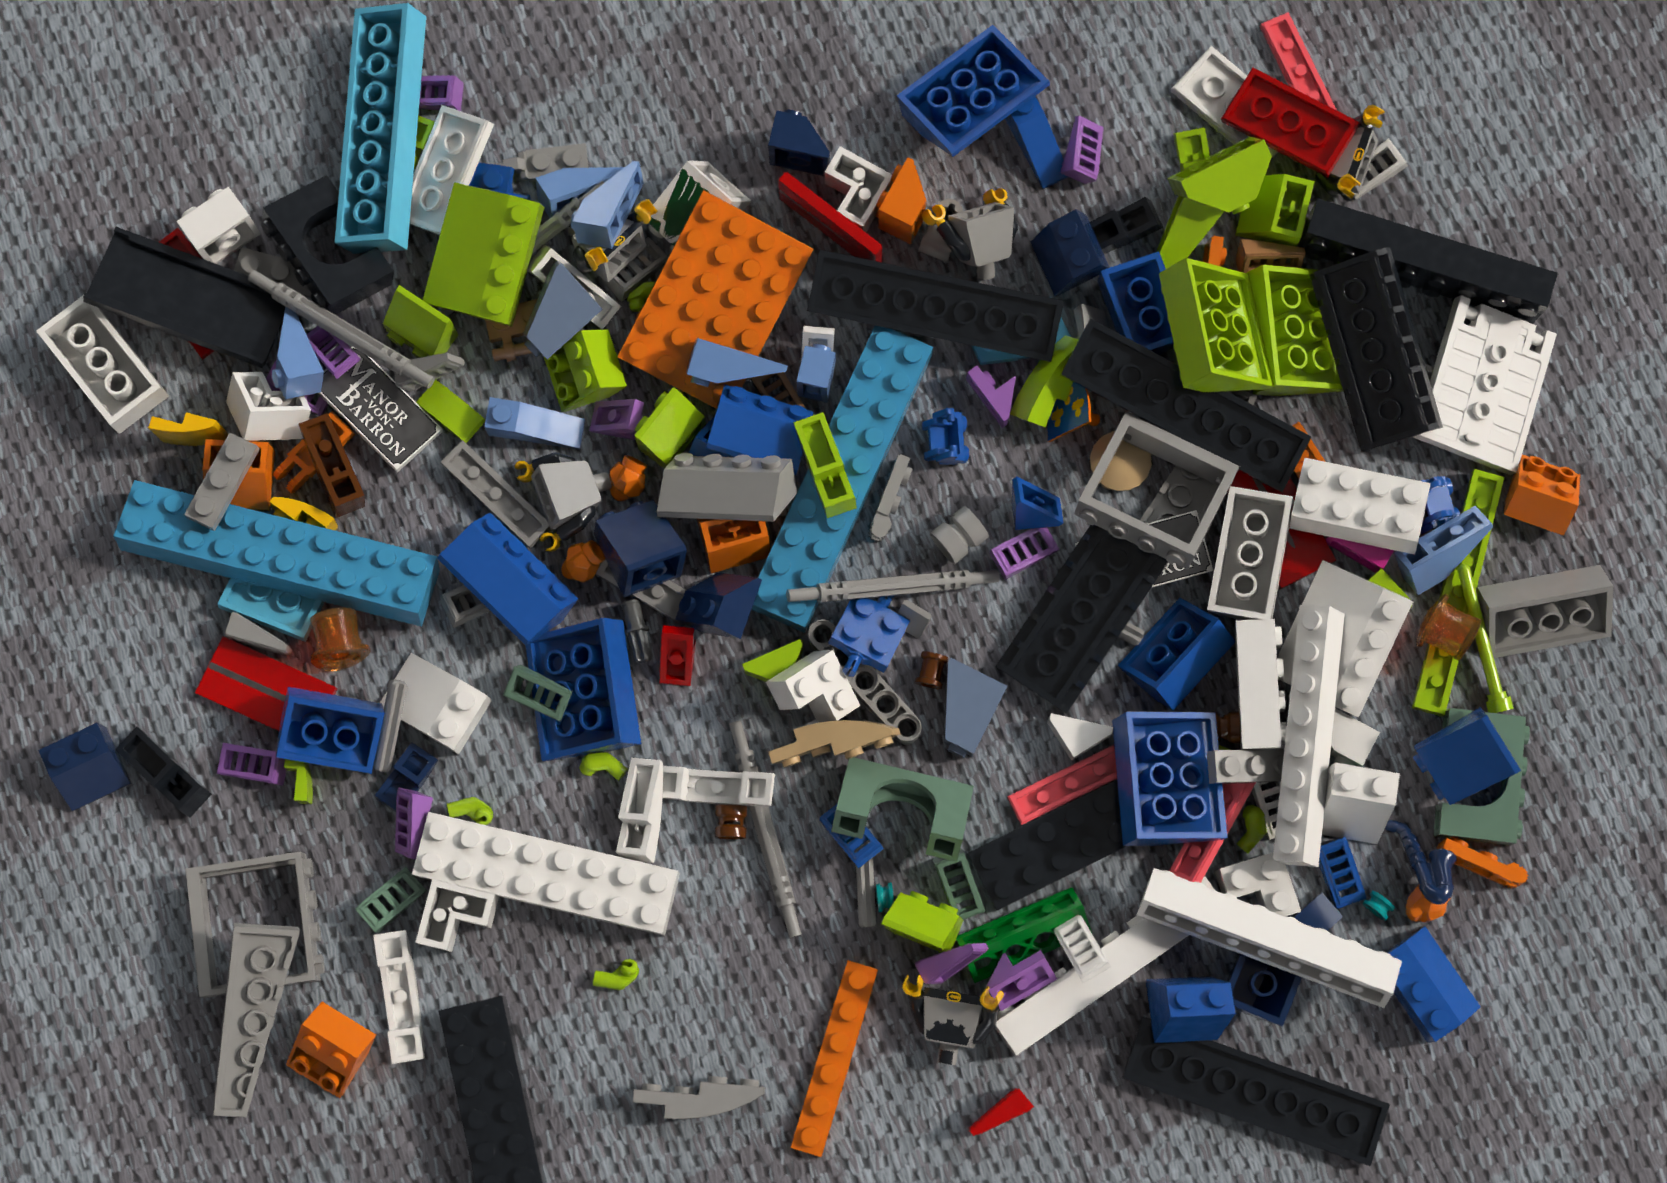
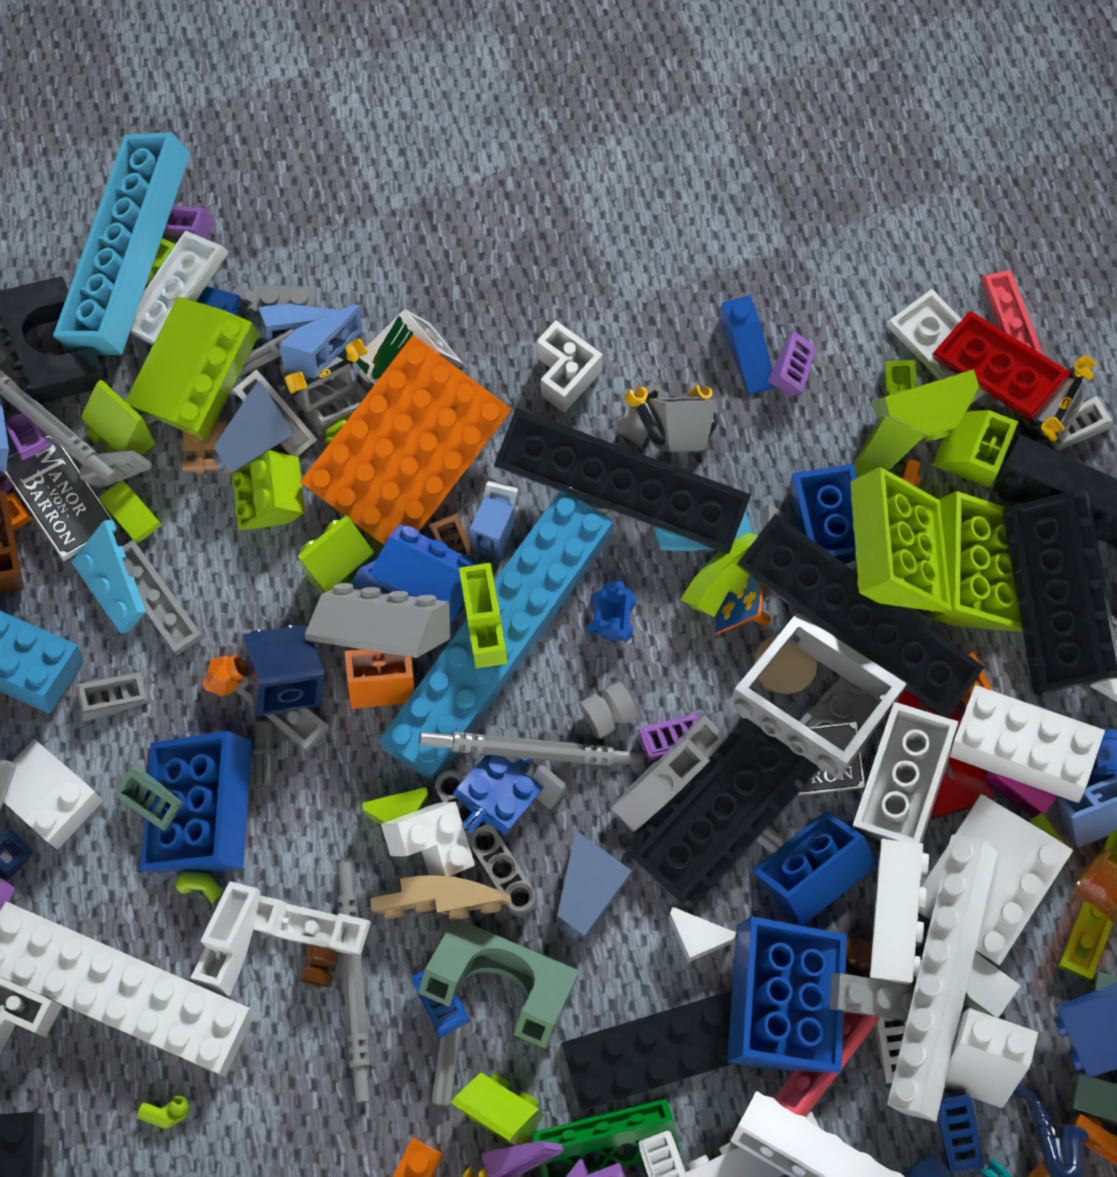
camera: 10 degrees right, 10 degrees down
(444, 480) = (105, 574): none -> medium azure wing
(472, 807) = (57, 906): lime arm -> none
(508, 579) = (144, 679): blue slope -> none
(533, 424) = (205, 535): medium blue slope -> none
(566, 493) = (222, 606): light grey torso -> none
(617, 417) = (287, 541): medium lavender slope -> none
(627, 478) = (287, 602): orange rock -> none
(677, 655) = (298, 784): red slope -> none
(719, 604) = (350, 739): dark blue slope -> none
(722, 364) = (401, 503): medium blue slope -> none
(797, 144) = (514, 314): dark blue slope -> none
(828, 219) = (530, 384): red tile -> none
(884, 896) = (464, 1074): teal bush -> none
(889, 500) = (544, 663): light grey hinge -> none
(903, 205) = (607, 383): orange slope -> none
(931, 670) = (556, 842): reddish brown bush -> none
(968, 911) = (550, 1106): sand green slope -> none
(971, 91) = (690, 290): blue slope -> none
(997, 400) = (669, 584): medium lavender slope -> none
(1027, 588) = (668, 774): none -> light grey slope
(1034, 506) = (689, 693): blue slope -> none
(1064, 786) = (675, 988): coral tile -> none
(1069, 252) = (764, 453): dark blue slope -> none
(1126, 225) = (810, 442): black slope -> none
(1255, 828) = (872, 1067): lime arm -> none
(1256, 253) = (955, 480): medium nougat slope -> none
(1264, 878) = (876, 1125): white brick -> none

